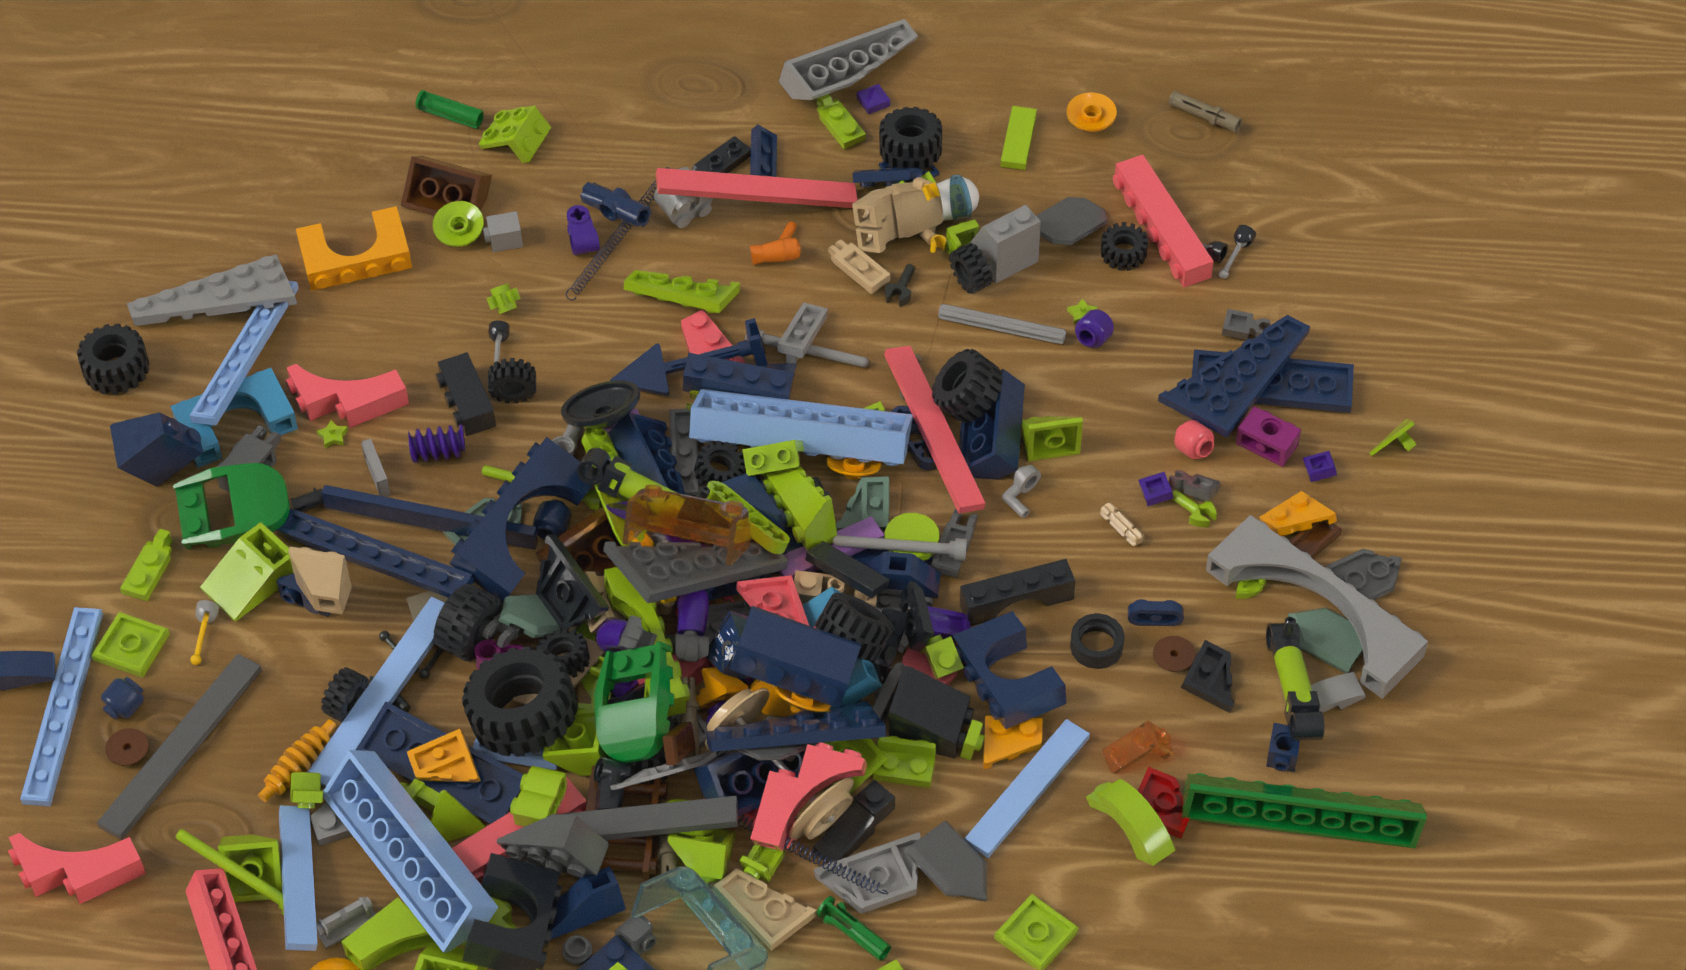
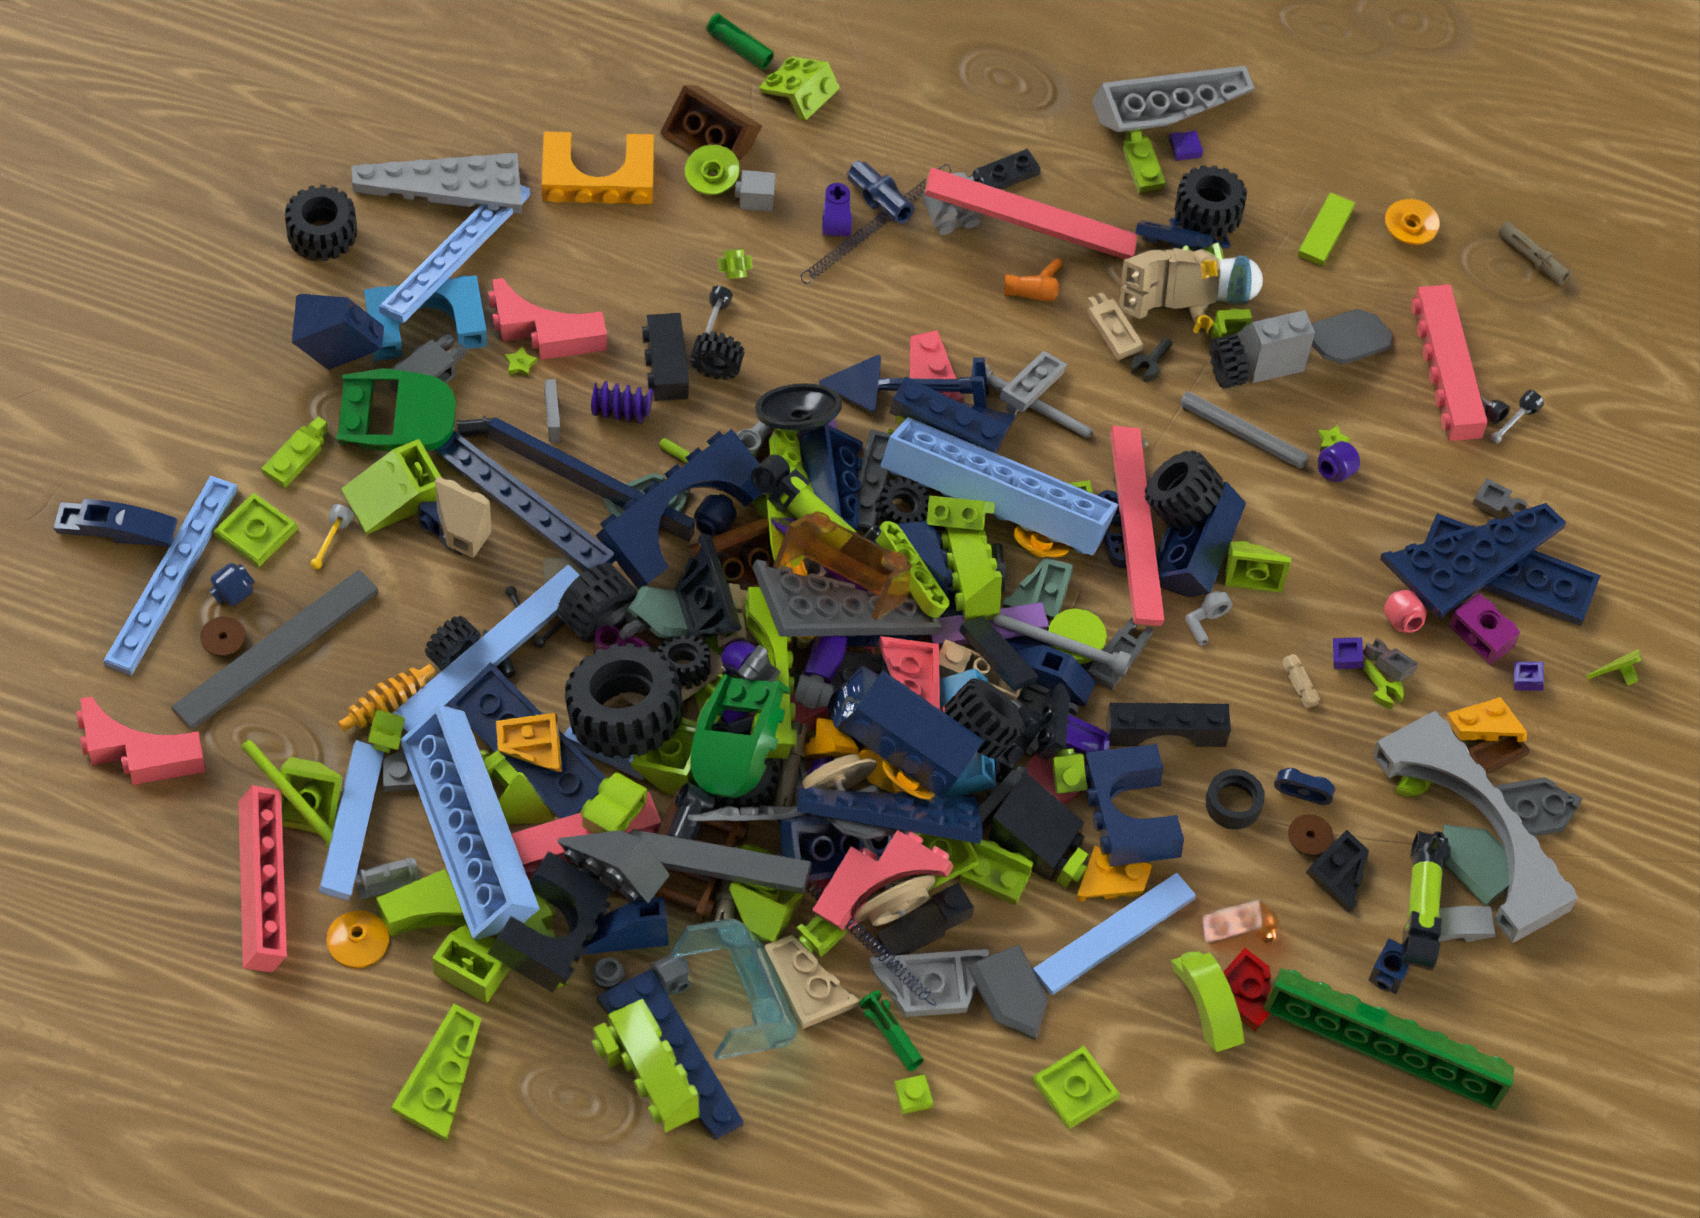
camera: 10 degrees right, 5 degrees up
(679, 743) = (770, 790): reddish brown tile -> none
(682, 290) = (945, 317): lime wing -> none
(763, 152) = (1051, 176): dark blue plate -> none
(1126, 235) = (1396, 392): black tyre -> none

